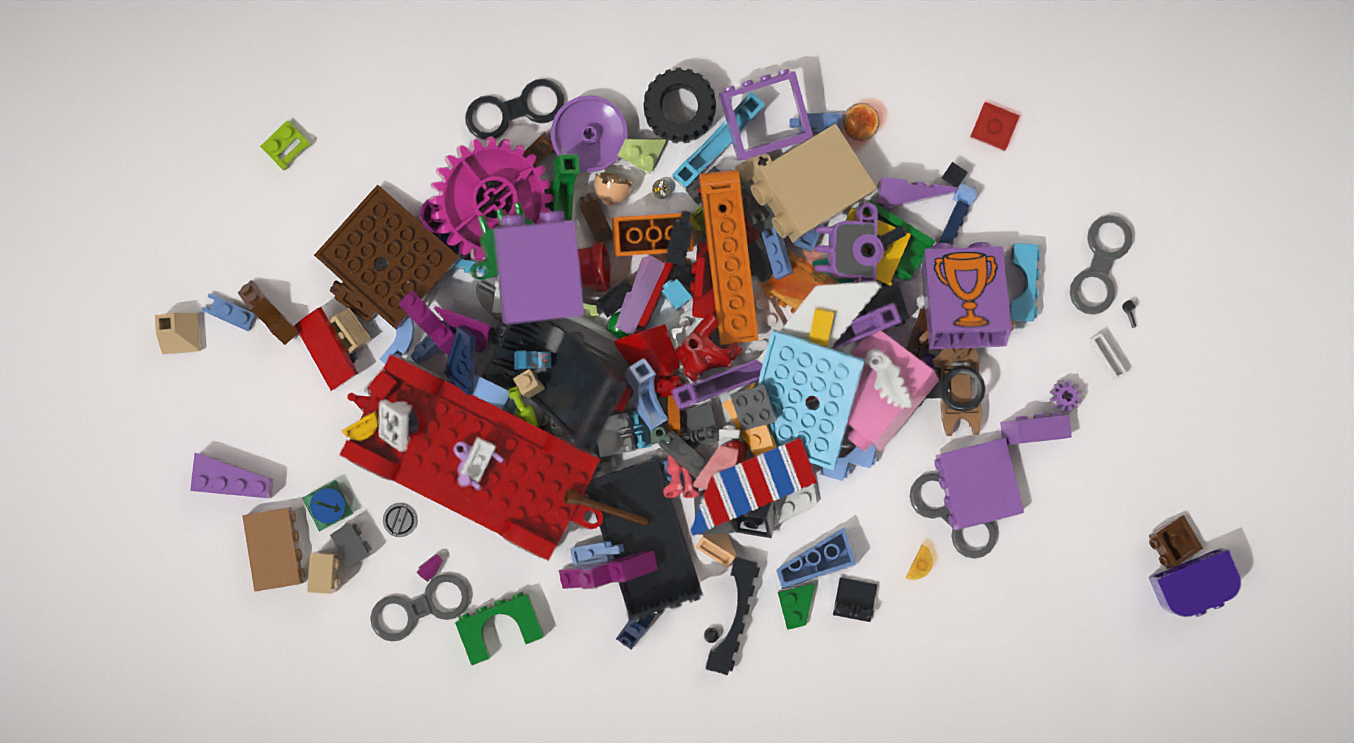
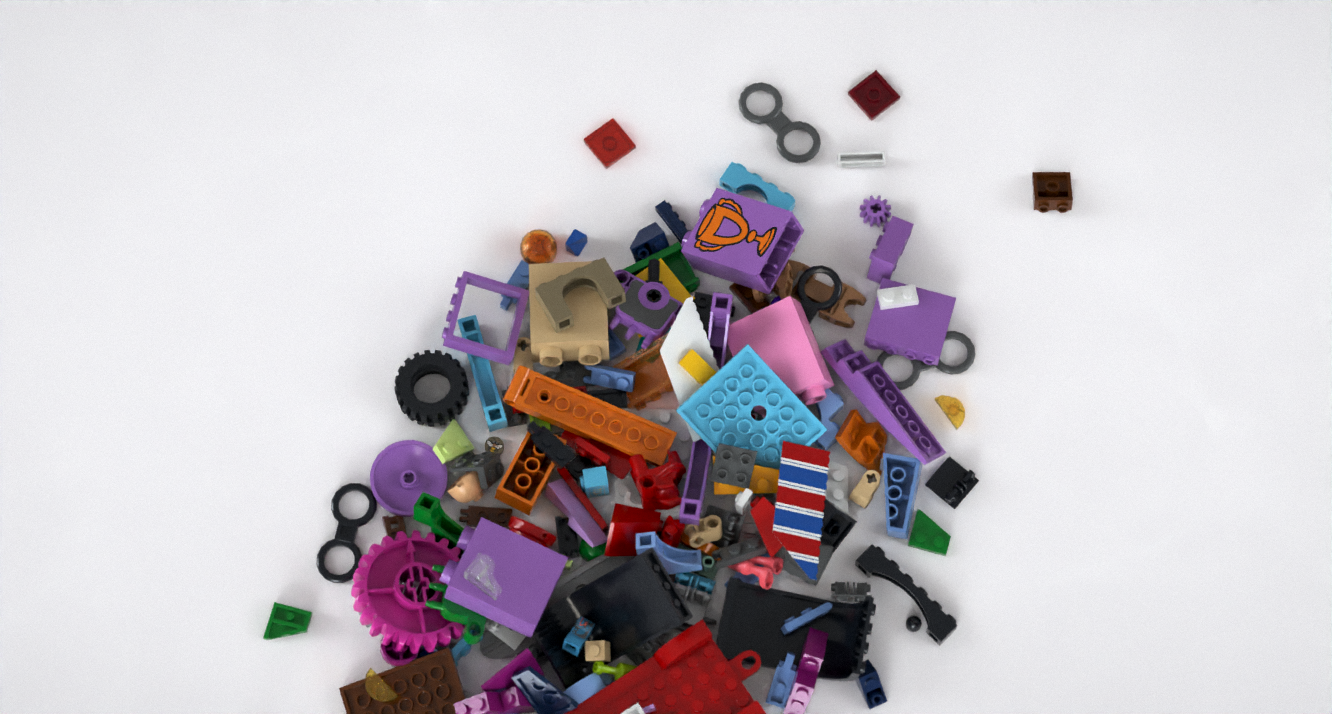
camera: 60 degrees left, 15 degrees down
(392, 218) = (378, 688): none -> clear yellow plate
(409, 106) = (286, 621): none -> green wing
(520, 252) = (481, 575): none -> clear arch
(573, 497) = (722, 663): reddish brown piece -> none
(636, 192) = (486, 464): none -> dark grey bracket
(663, 543) = (807, 616): none -> medium blue hinge
(683, 416) = (708, 530): none -> tan piece
(696, 563) = (839, 588): none -> dark grey hinge
(717, 547) = (839, 571): light nougat slope -> none
(802, 529) = (864, 491): none -> tan piece
(847, 503) = (863, 440): none -> orange slope
(855, 188) = (595, 275): none -> dark tan arch
(884, 151) = (576, 242): none -> blue slope
(888, 379) = (775, 336): white plant -> none
(892, 501) = (883, 399): none -> medium lavender slope
(897, 192) = (617, 247): medium lavender wedge -> none
(919, 214) = (648, 242): none -> dark blue slope
(954, 175) = (631, 196): black tile -> none
(965, 194) = (653, 197): light blue tile -> none
(994, 462) = (897, 297): none -> white plate
(1127, 307) = (828, 121): black hand -> none
(1176, 333) = (873, 95): none -> dark red tile
(1198, 584) = (1098, 191): dark purple brick -> none

